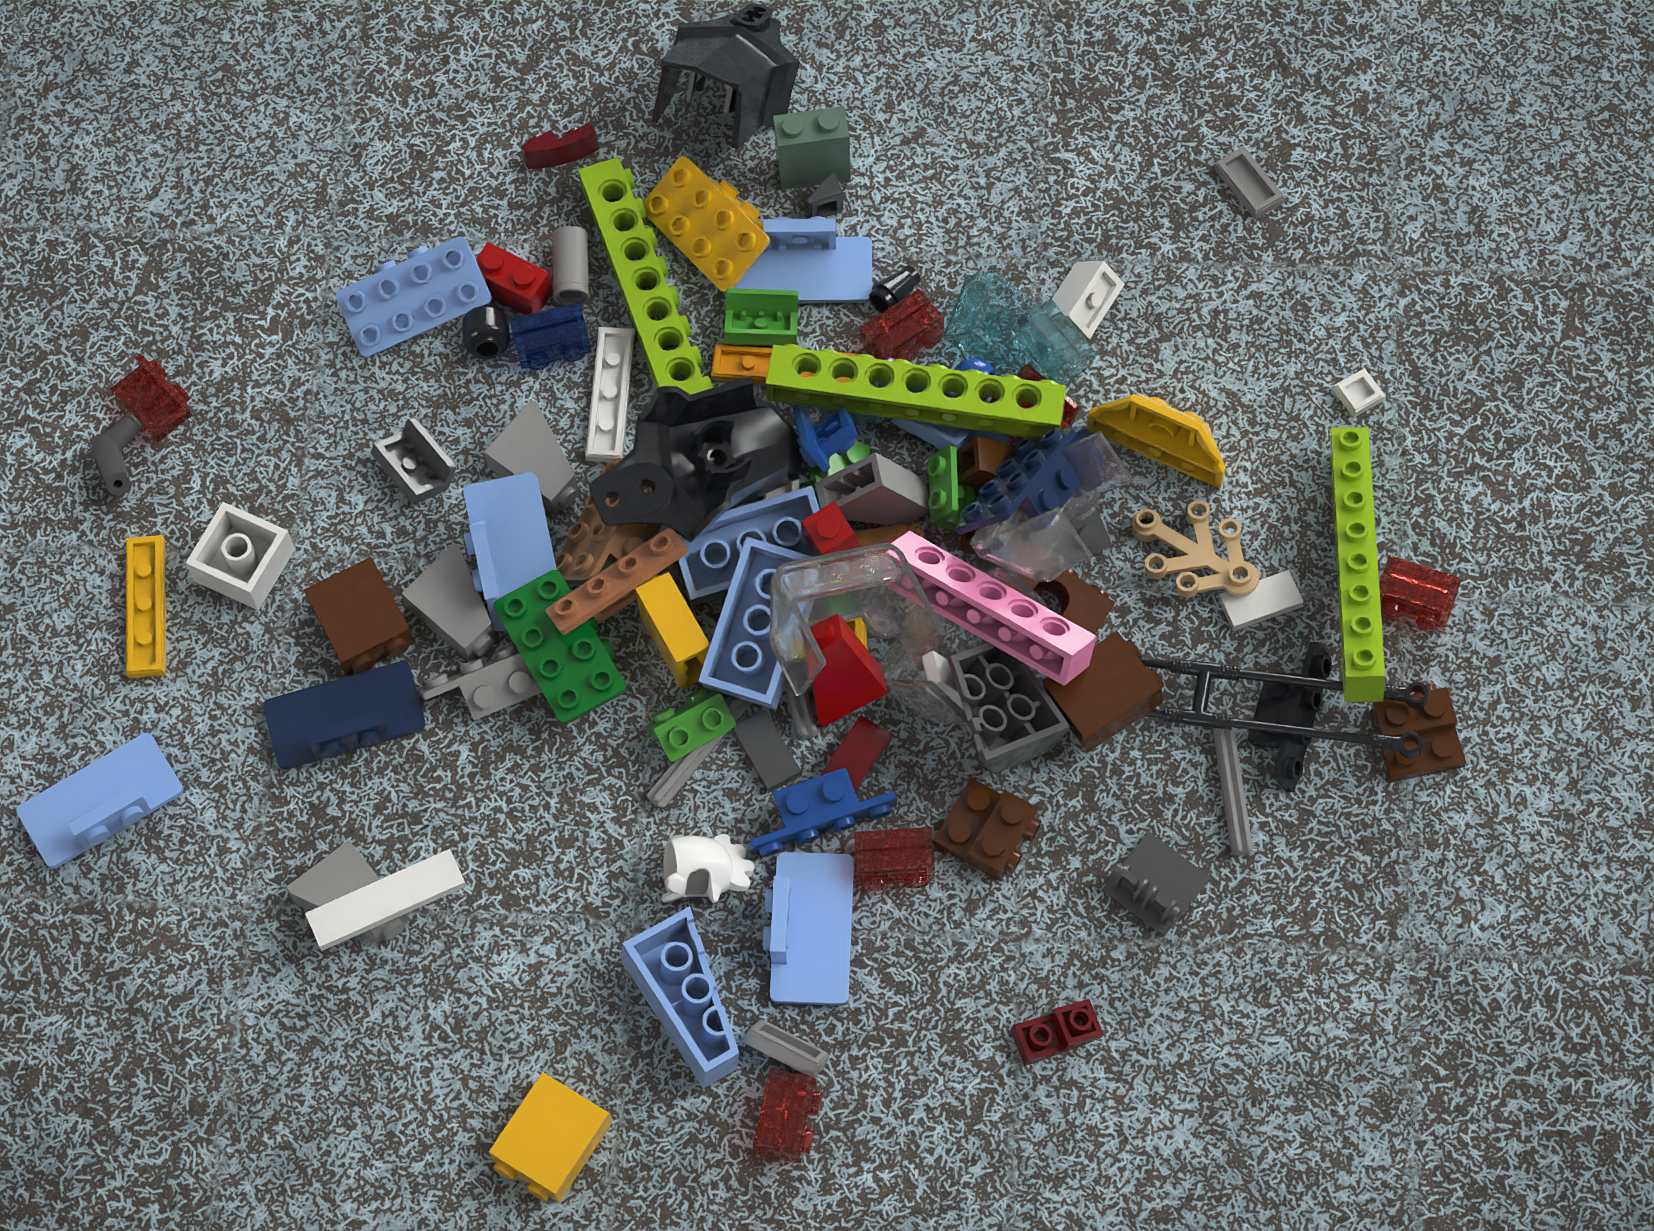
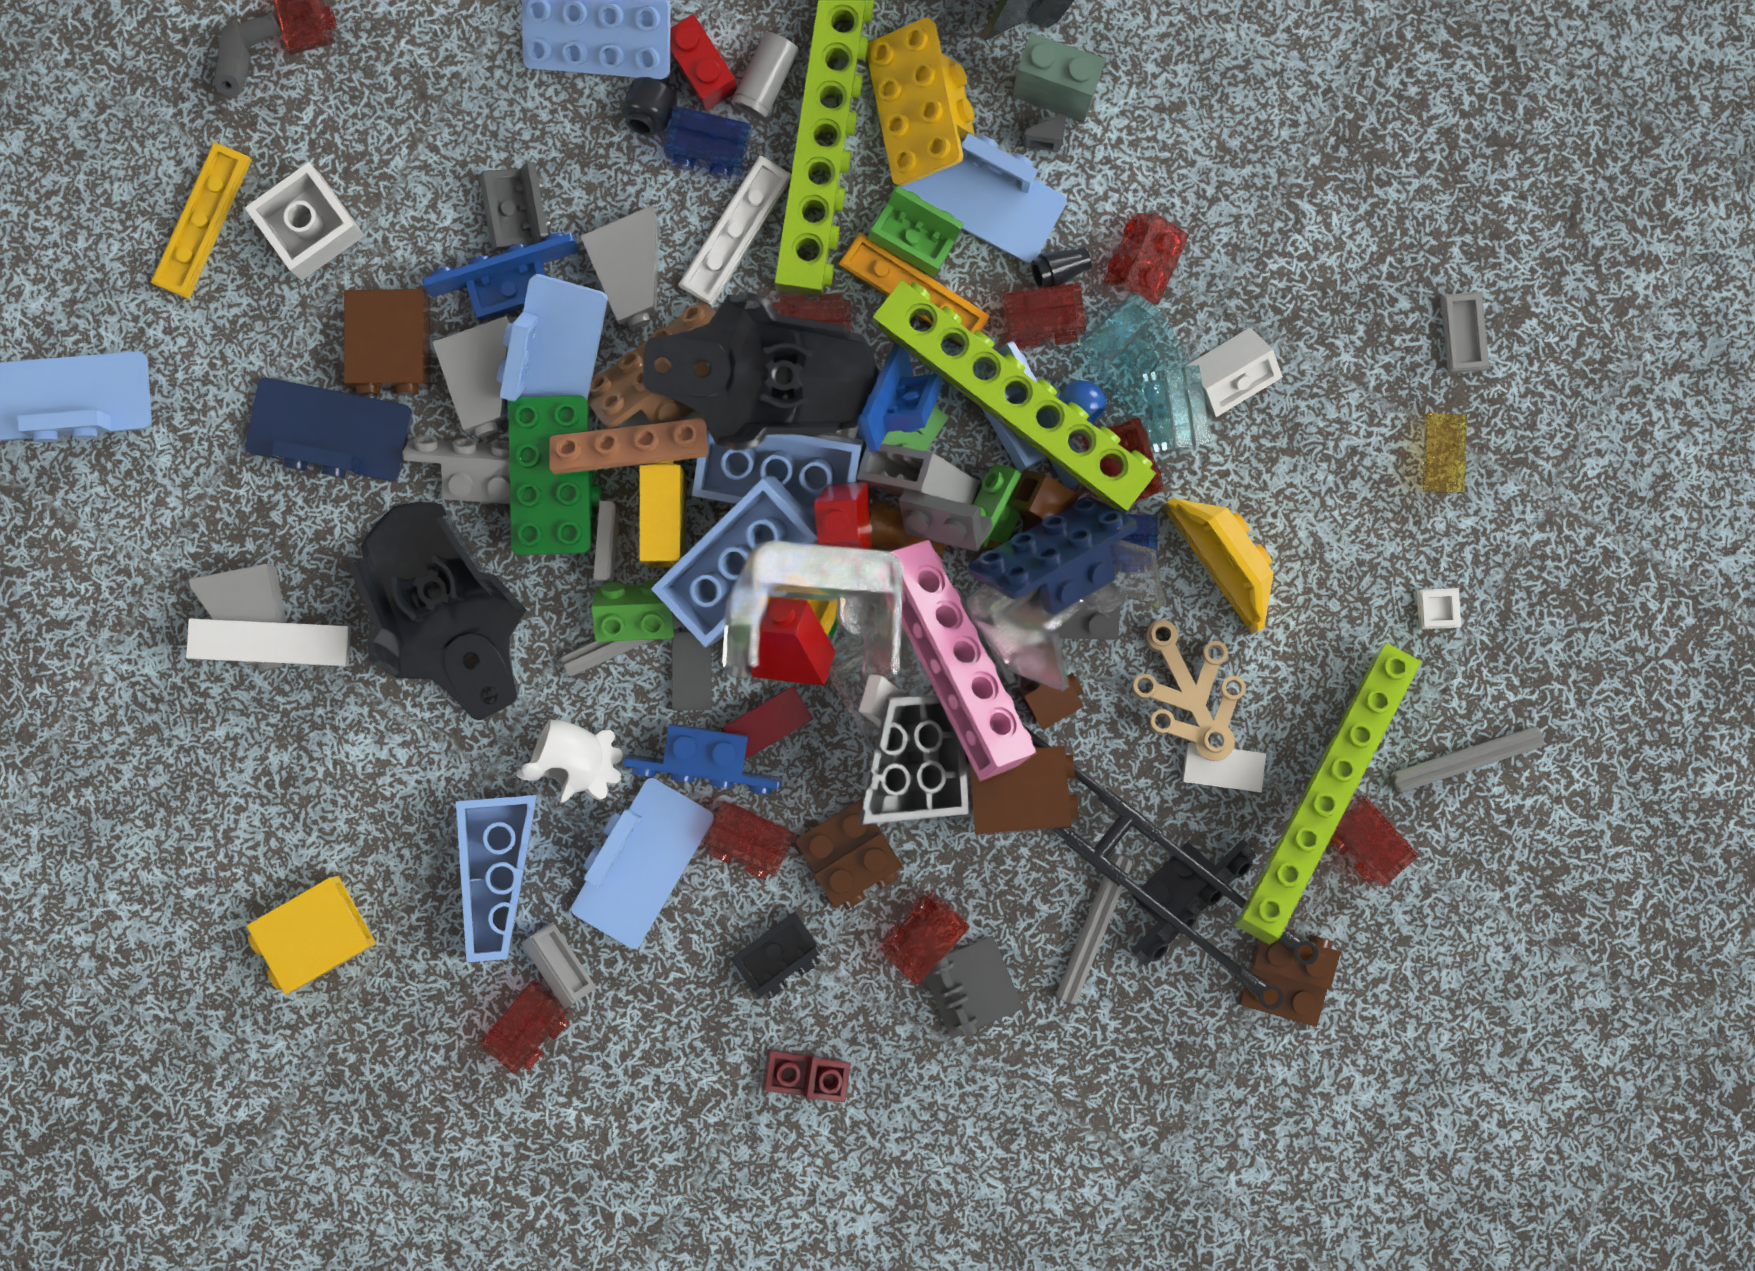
camera: 25 degrees right, 20 degrees up
(434, 520) = (501, 282): none -> blue bracket
(524, 798) = (437, 607): none -> black piece
(635, 681) = (606, 542): none -> light grey tile
(913, 504) = (943, 520): none -> dark grey bracket
(959, 246) = (1146, 256): none -> clear red bracket
(973, 941) = (778, 955): none -> black bracket
(1091, 857) = (923, 937): none -> clear red bracket
(1289, 275) = (1444, 453): none -> clear yellow plate
(1455, 493) = (1467, 759): none -> light grey axle

